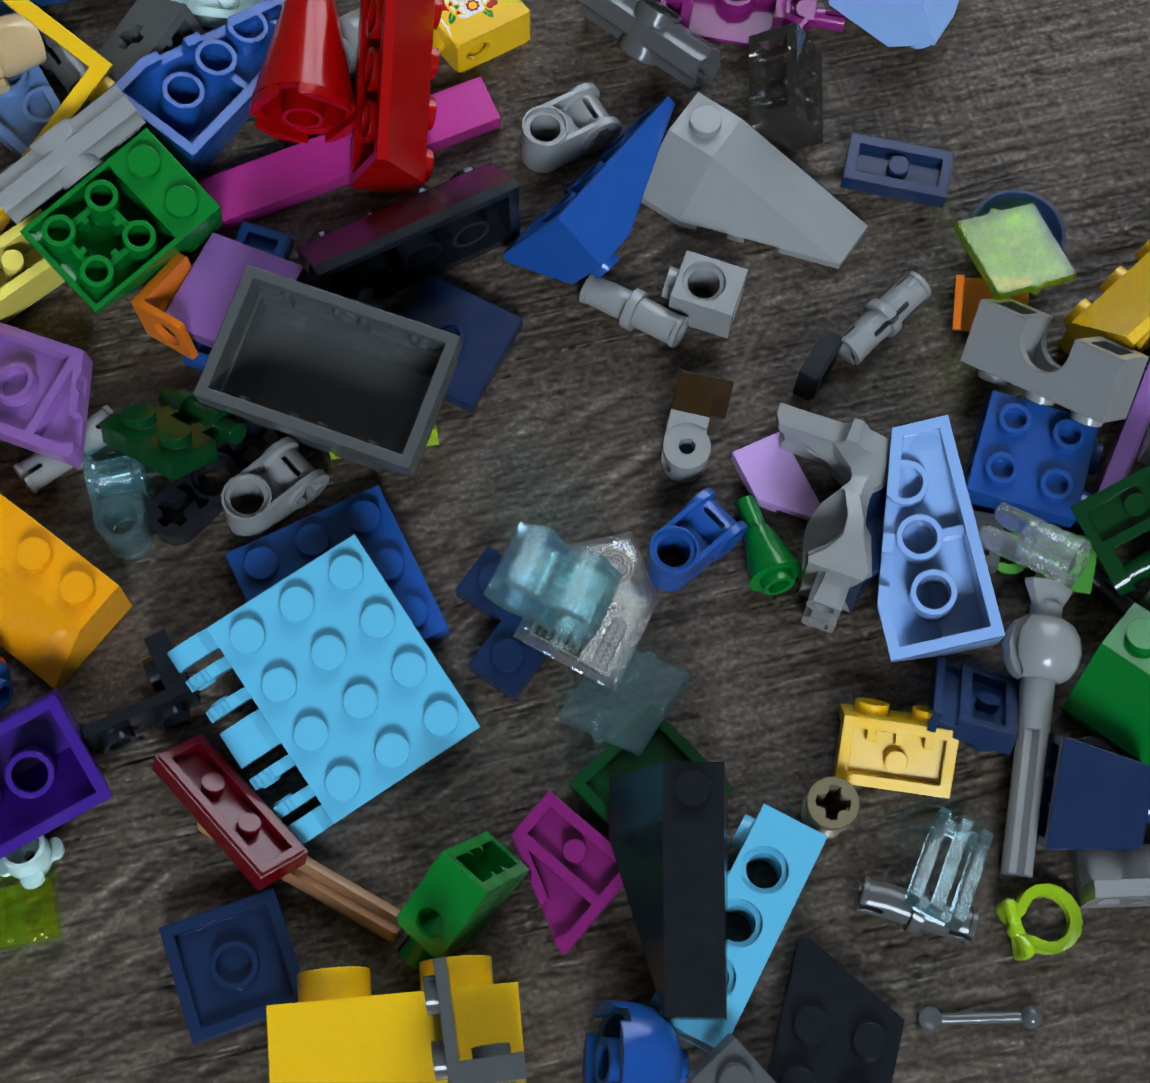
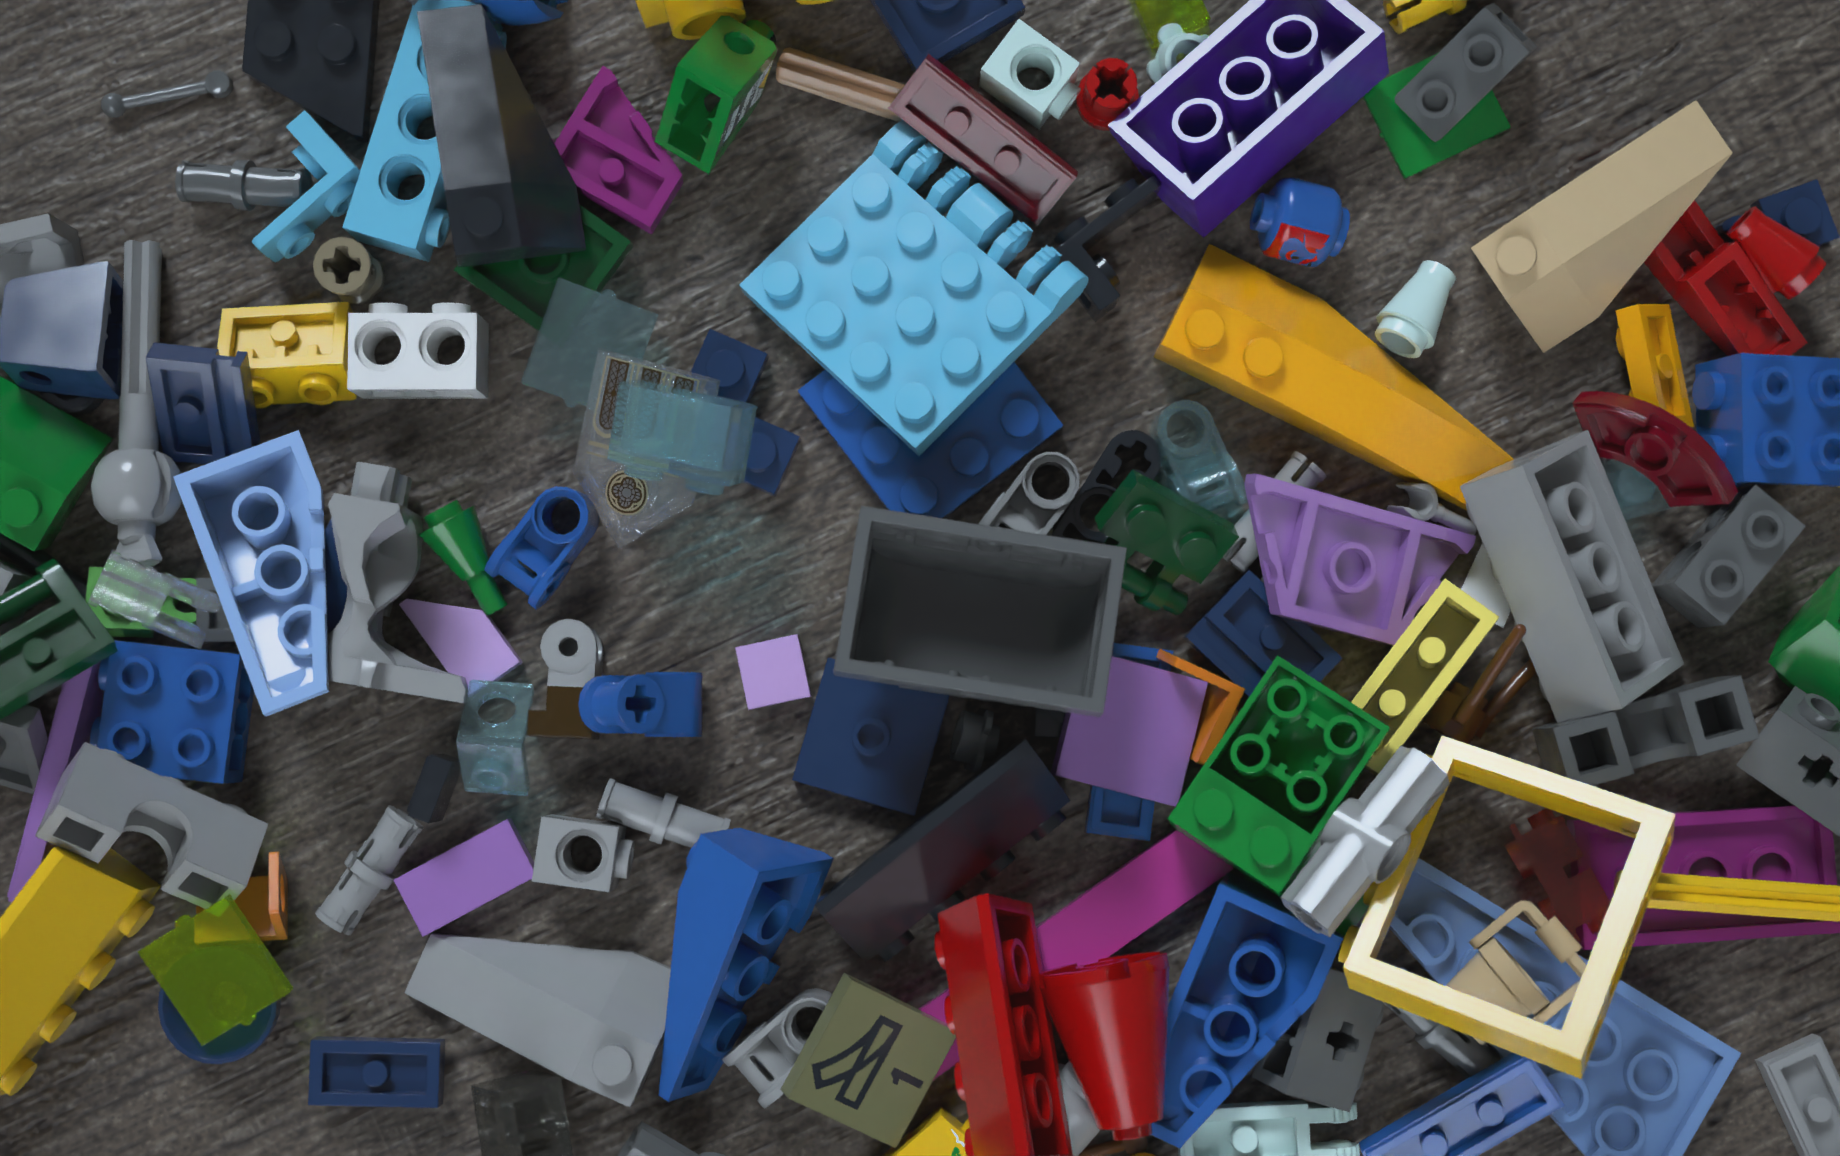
camera: 170 degrees right, 15 degrees up
(118, 345) = (1244, 638): none -> dark blue plate
(122, 835) = (1107, 73): none -> red bush
(188, 881) = (1027, 49): none -> light aqua brick
(504, 94) = (869, 1061): none -> olive tile
(520, 407) = (773, 672): none -> lavender tile
(629, 391) = (644, 704): none -> blue piece
(761, 375) = (491, 753): none -> clear light blue bracket
(778, 705) = (417, 369): none -> white brick
(803, 299) = (466, 877): none -> medium lavender tile
(838, 919) = (330, 196): none -> medium azure bracket
(961, 837) = (185, 264): clear light blue tile -> none
(1025, 945) = (142, 205): lime piece -> none

